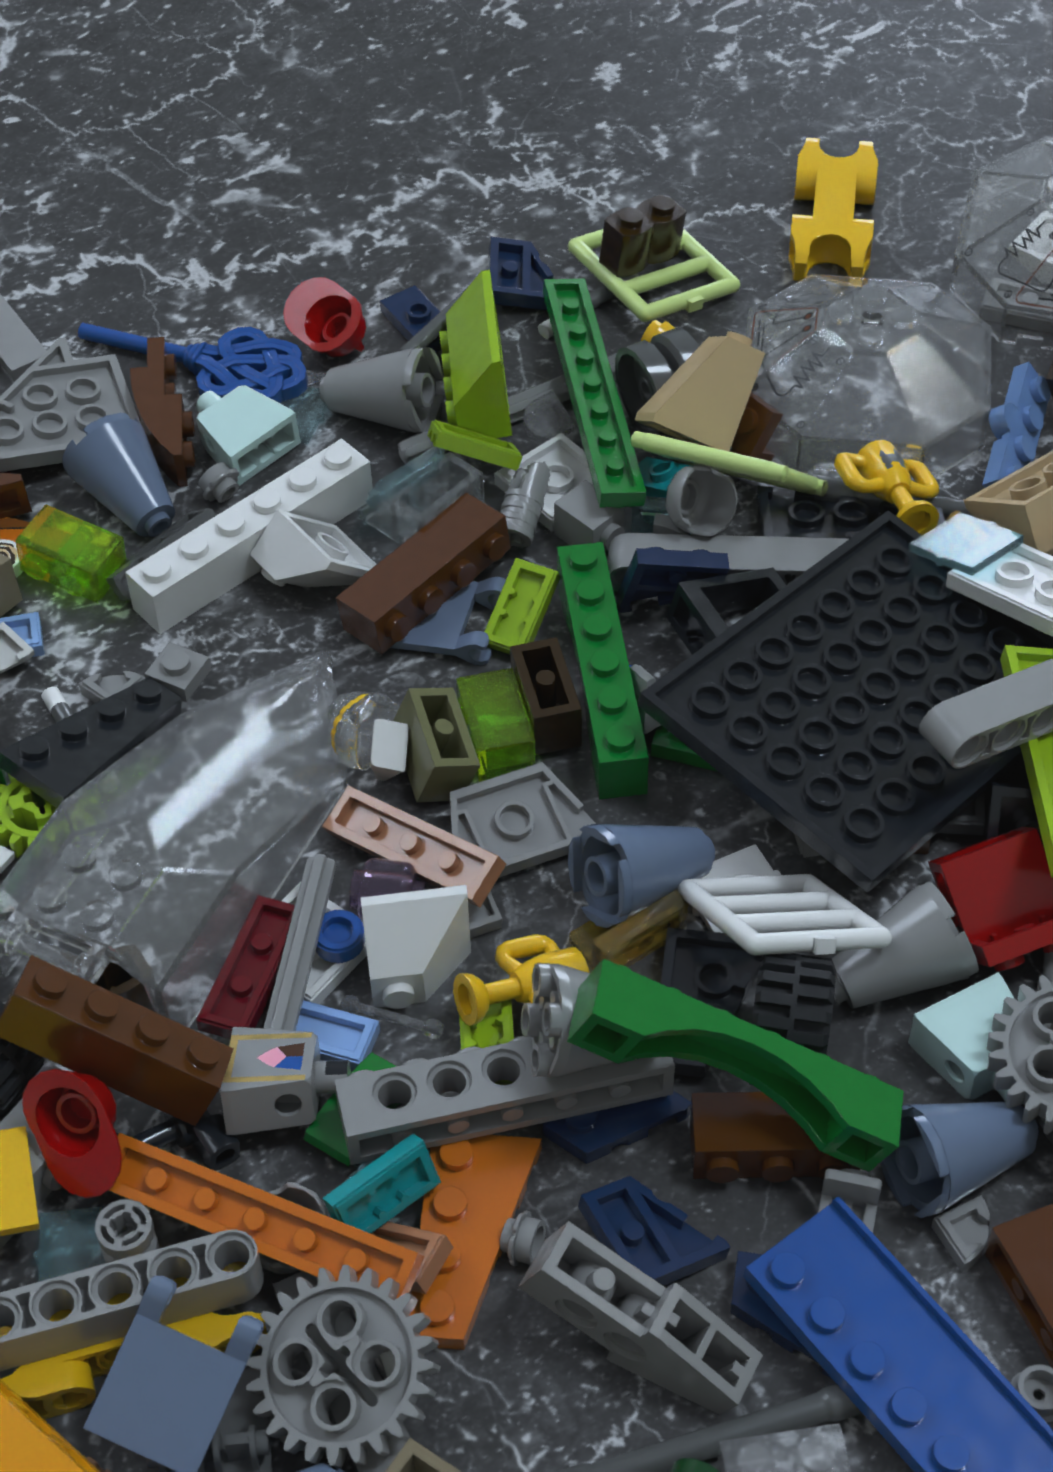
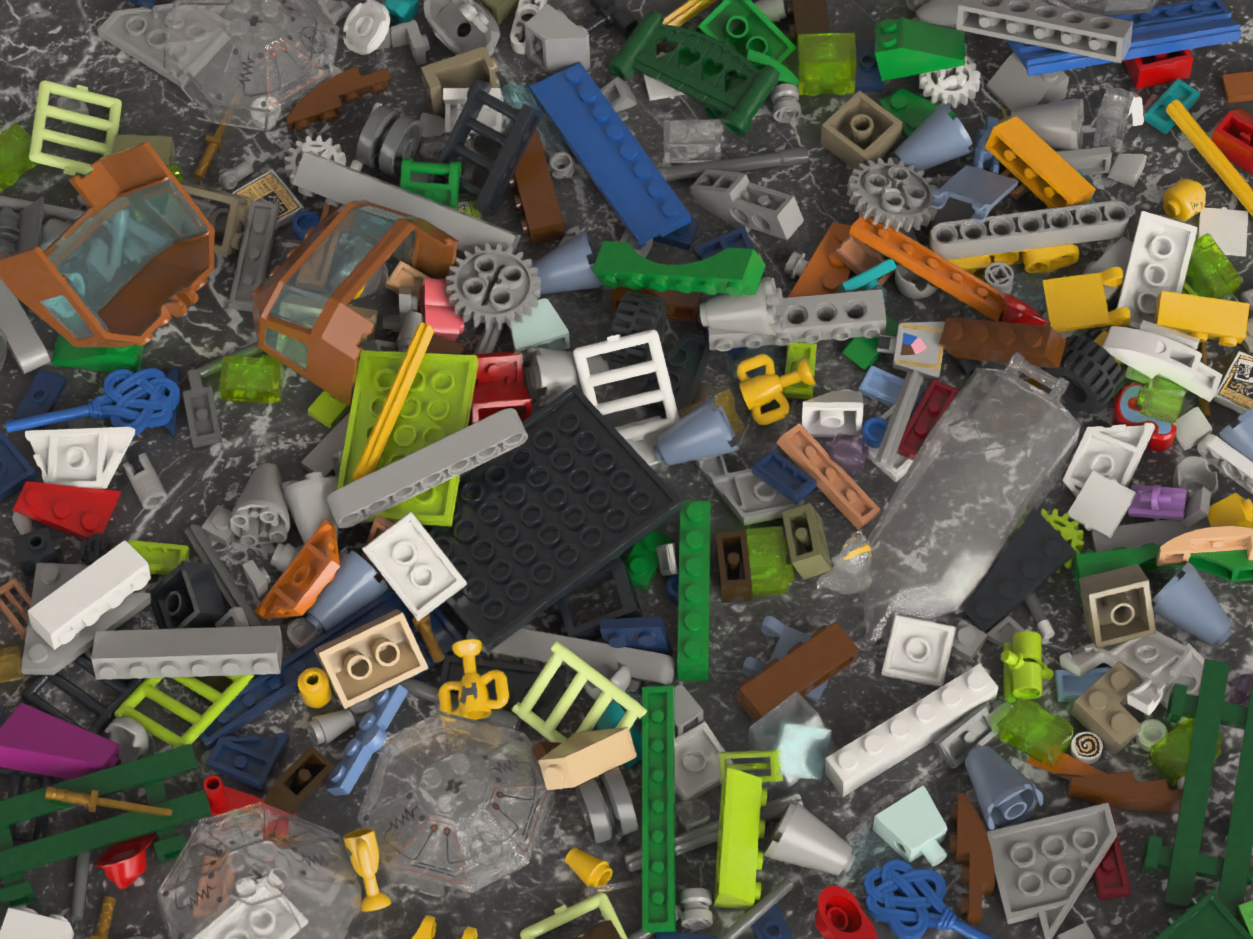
camera: 170 degrees left, 10 degrees up
(88, 626) = (1024, 667): none -> lime pin
(219, 482) = (935, 786): light grey plate -> none
(247, 636) = (918, 651): none -> white tile
(308, 553) = (864, 701): white slope -> none
(388, 748) = (835, 539): white slope -> none
(485, 819) = (784, 476): none -> dark blue plate
(521, 321) = (696, 908): none -> light grey wheel
(521, 605) = (737, 644): lime plate -> none
(525, 502) = (724, 723): light grey hinge -> none
(660, 316) = (590, 891): none -> clear hinge
(965, 282) = (364, 857): none -> yellow piece
(966, 543) = (445, 606): clear light blue piece -> none

